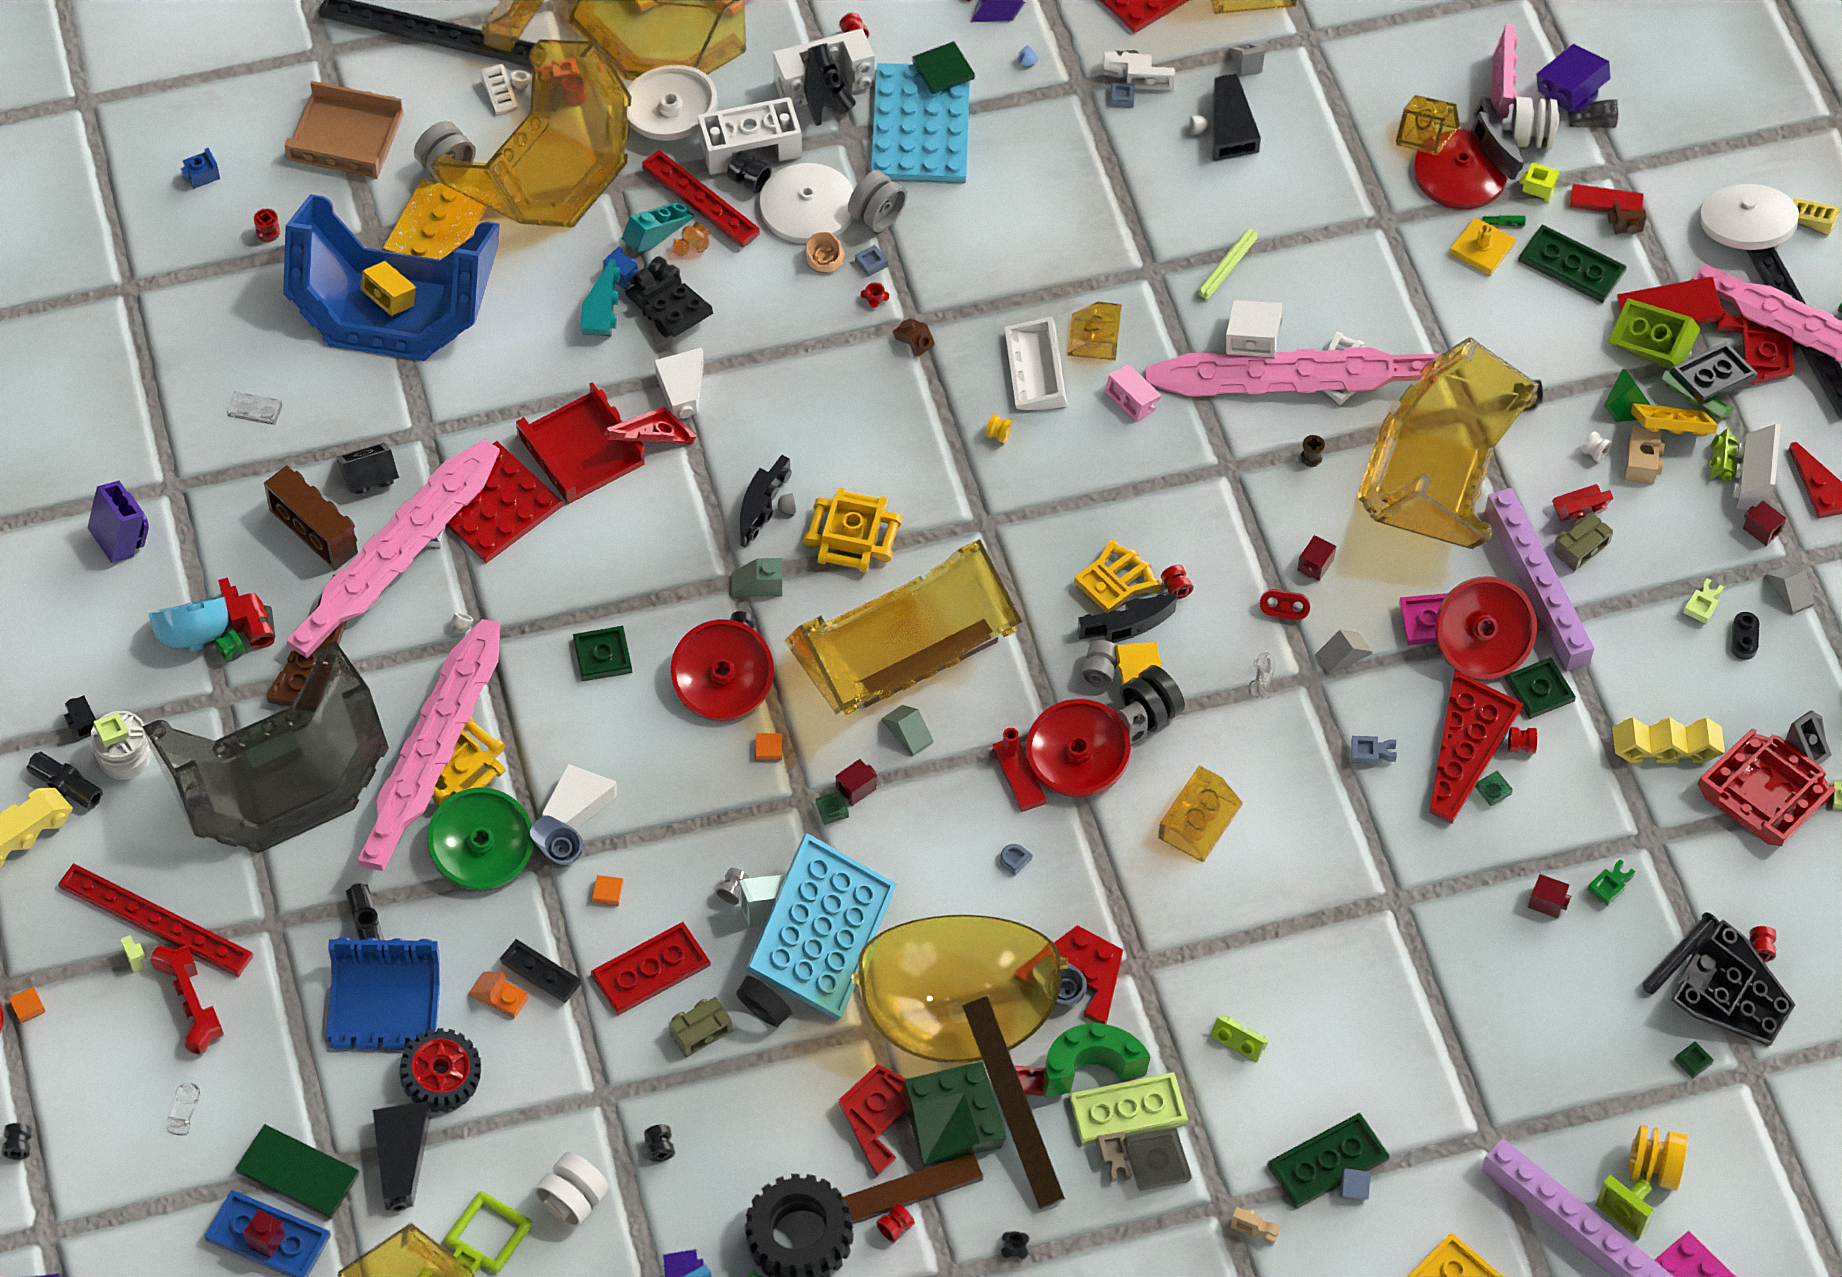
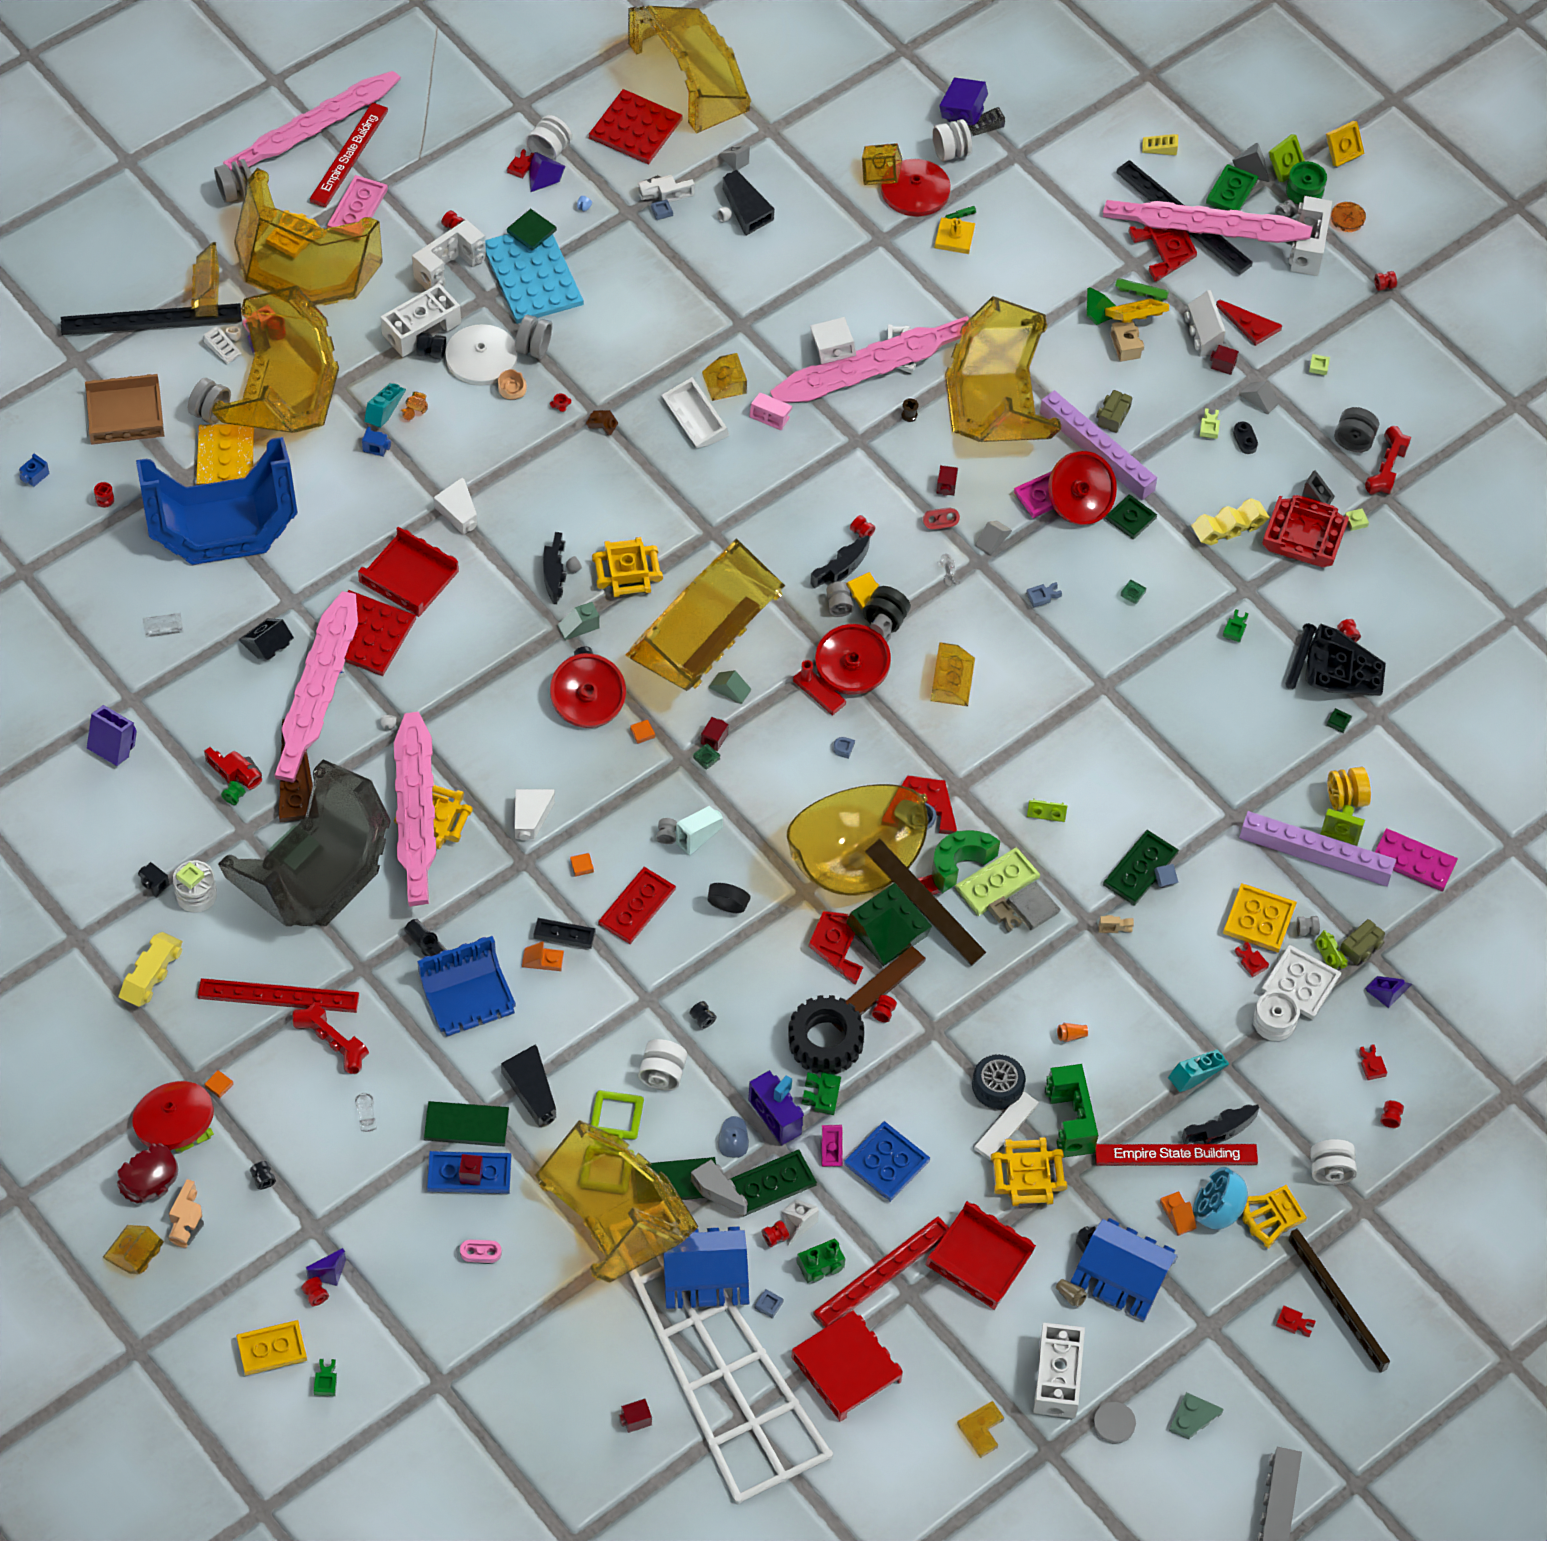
camera: 25 degrees left, 0 degrees up
(65, 780) = (165, 923): black piece -> none
(133, 953) = (276, 1022): yellowish green plate -> none
(190, 623) = (199, 786): medium azure cylinder -> none
(311, 517) = (247, 685): reddish brown brick -> none
(388, 288) = (217, 509): yellow brick -> none
(443, 1050) = (535, 1008): wheel -> none
(480, 839) = (480, 860): green dish -> none
(553, 835) = (531, 839): sand blue cap -> none
(597, 309) = (375, 476): teal slope -> none
(602, 653) = (496, 708): dark green tile -> none
(653, 426) = (455, 543): red wing -> none
(661, 270) = (405, 435): black wheel -> none
(668, 303) = (423, 455): black plate -> none
(669, 102) = (353, 314): white dish -> none
(700, 1026) = (691, 930): olive brick -> none
(701, 198) = (405, 375): red plate -> none
(820, 926) = (742, 835): medium azure plate -> none
(824, 84) = (457, 266): black pin -> none
(871, 260) = (546, 379): sand blue tile -> none
(998, 428) = (692, 465): yellow wheel -> none
(1020, 1239) = (970, 989): black plate -> none
(1106, 588) = (820, 548): yellow plate -> none
(1227, 264) = (791, 303): yellowish green axle -> none
(1472, 733) = (1103, 563): red wing -> none
(1494, 141) = (932, 161): black slope -> none
(1502, 72) = (916, 114): bright pink plate -> none
(1522, 740) = (1137, 554): red wheel -> none
(1539, 181) = (973, 179): neon yellow brick -> none
(1549, 896) = (1202, 648): dark red brick -> none
(1572, 263) = (1019, 228): dark green tile -> none
(1580, 502) = (1101, 385): red bracket -> none
(1596, 446) = (1094, 345): white wheel -> none
(1602, 198) = (1021, 178): red tile -> none
(1626, 221) = (1041, 188): reddish brown bracket -> none
(1654, 333) = (1097, 257): lime slope -> none
(1690, 298) = (1097, 236): red tile -> none
(1713, 373) = (1148, 271): black tile -> none
(1723, 447) = (1177, 324): lime hinge -> none
(1749, 216) = (1121, 159): white dish -> none

